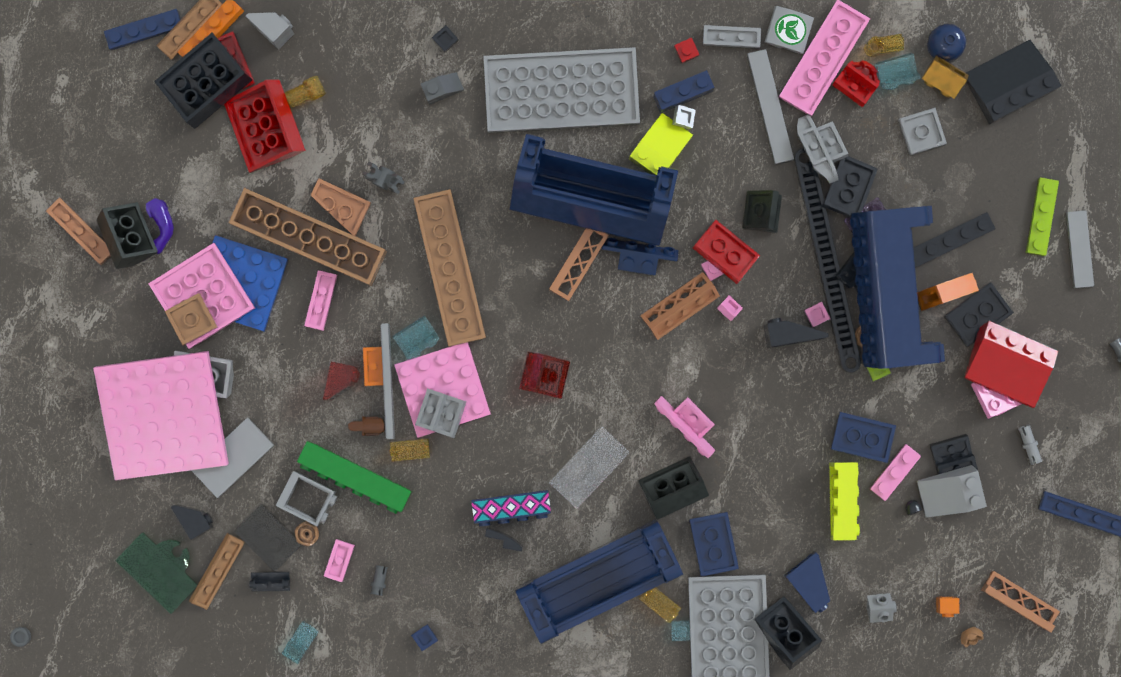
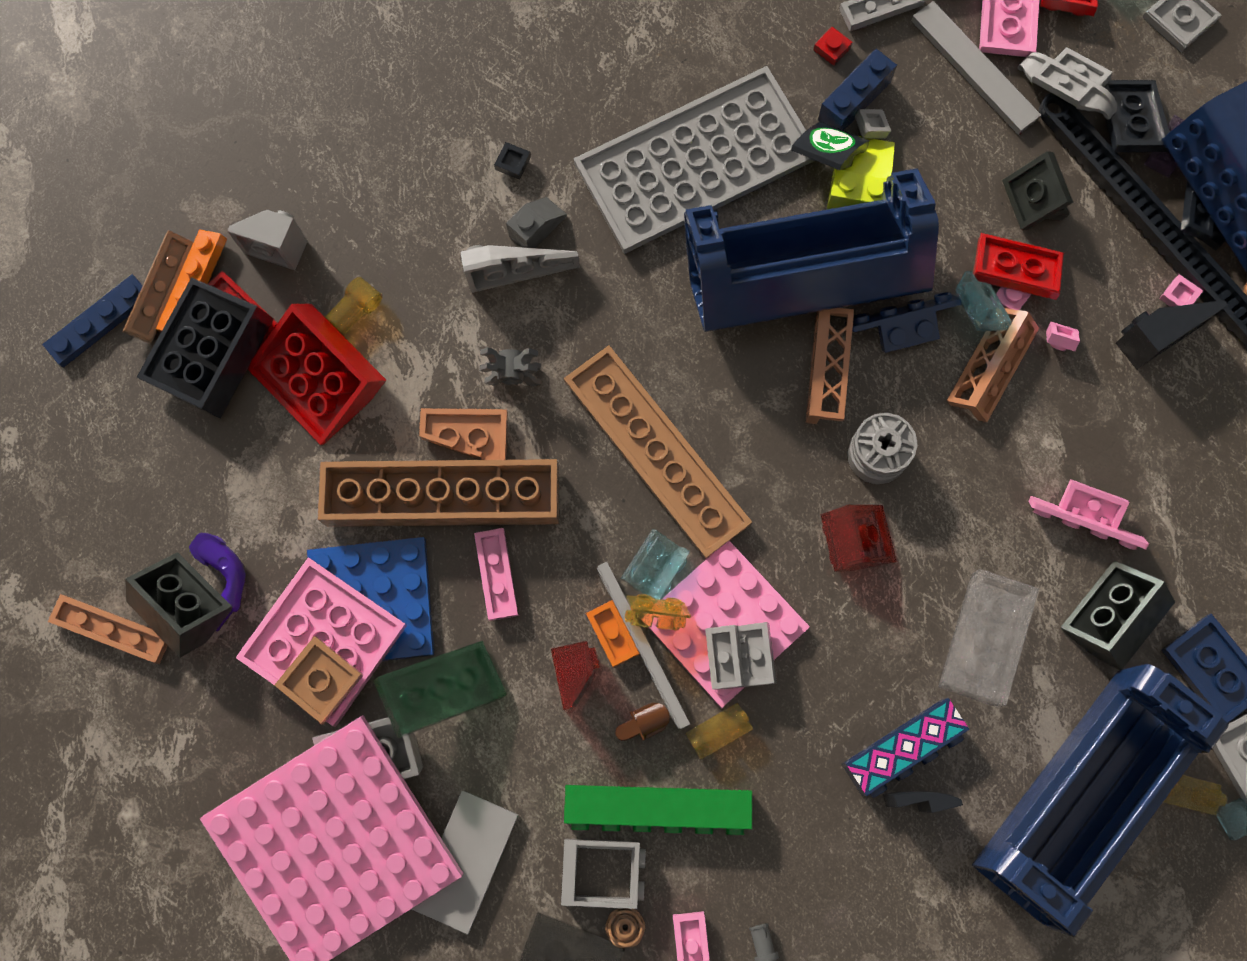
camera: 20 degrees left, 10 degrees down
(259, 354) = (439, 688): none -> clear green plate
(404, 106) = (502, 265): none -> light grey wedge
(410, 369) = (670, 612): none -> clear yellow hinge
(581, 339) = (870, 460): none -> light grey wheel
(645, 122) = (830, 145): none -> black slope
(689, 267) = (982, 304): none -> clear light blue bracket

